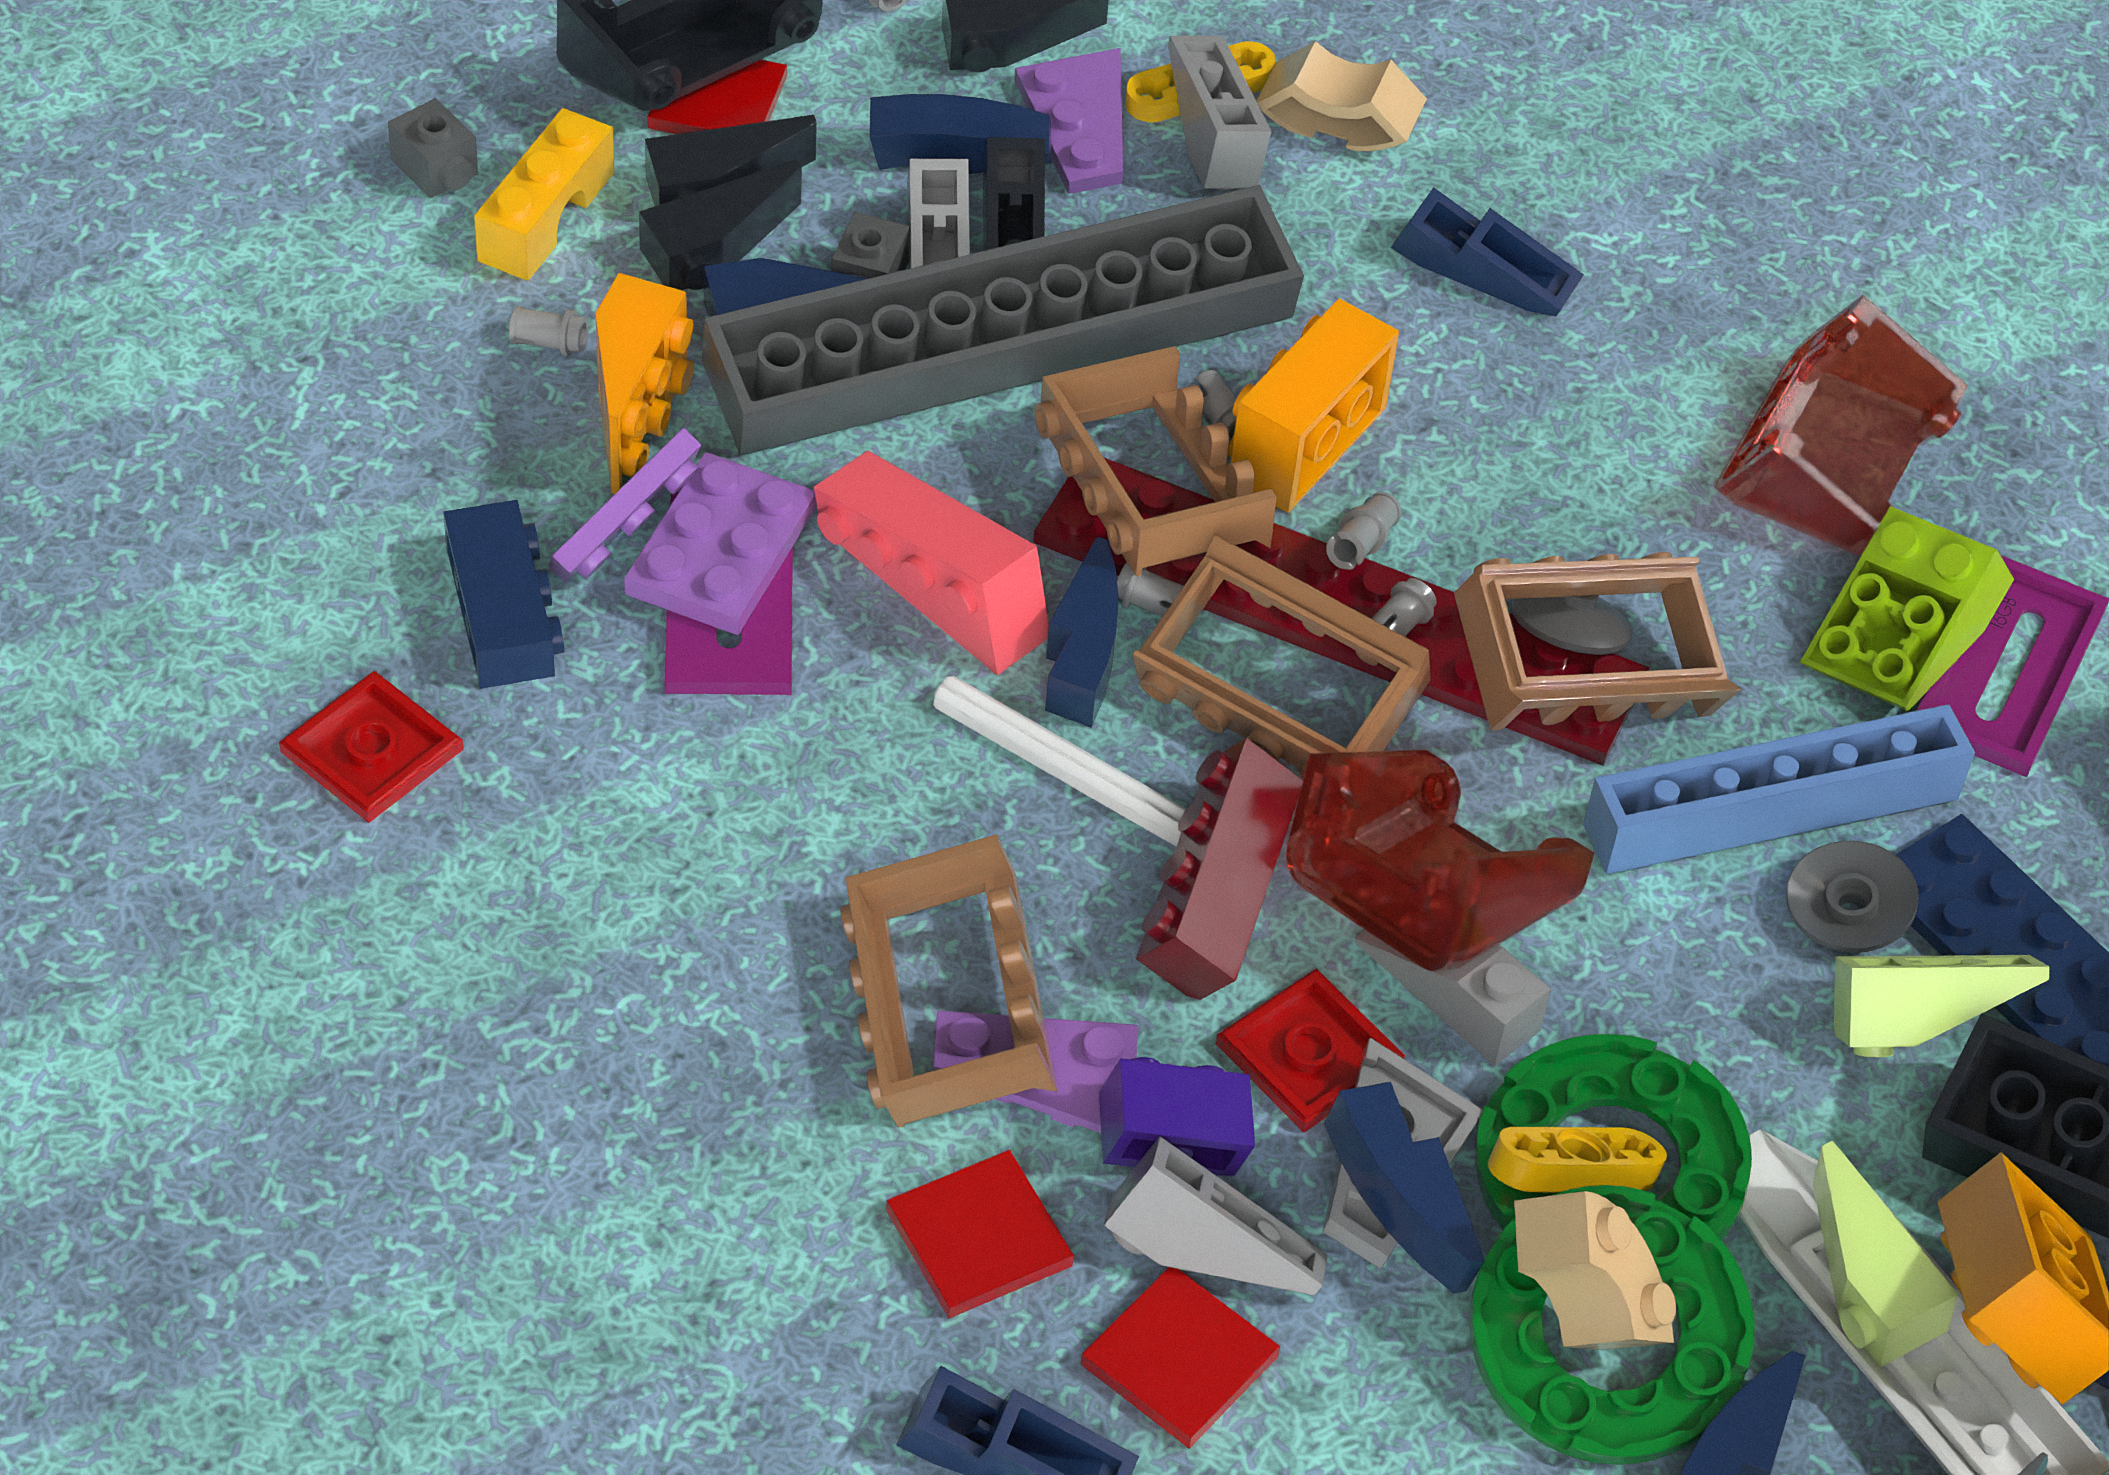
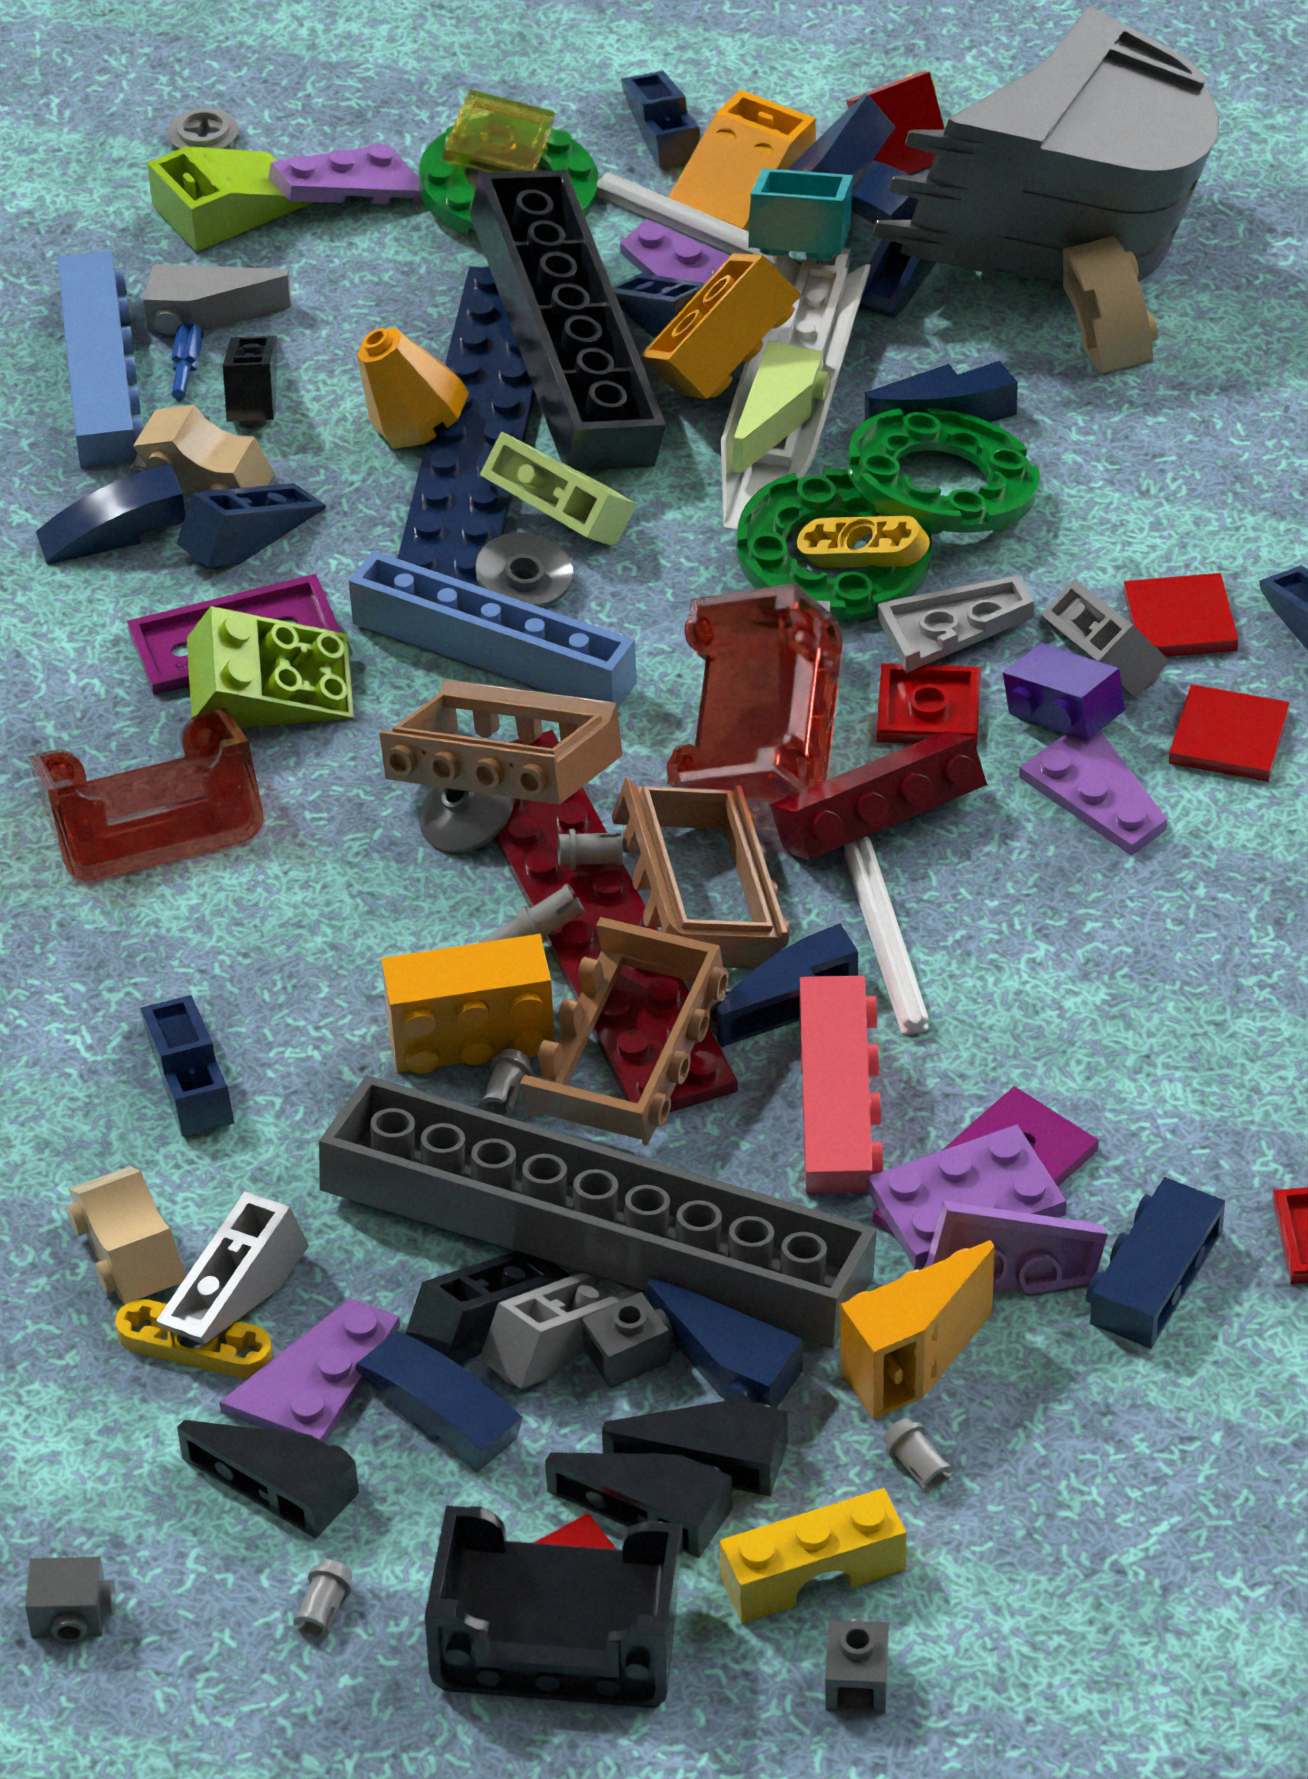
camera: 130 degrees left, 5 degrees down
(916, 886) = (1165, 773): medium nougat window -> none
(1405, 1183) = (977, 575): dark blue slope -> none
(1594, 1271) = (947, 451): tan brick -> none

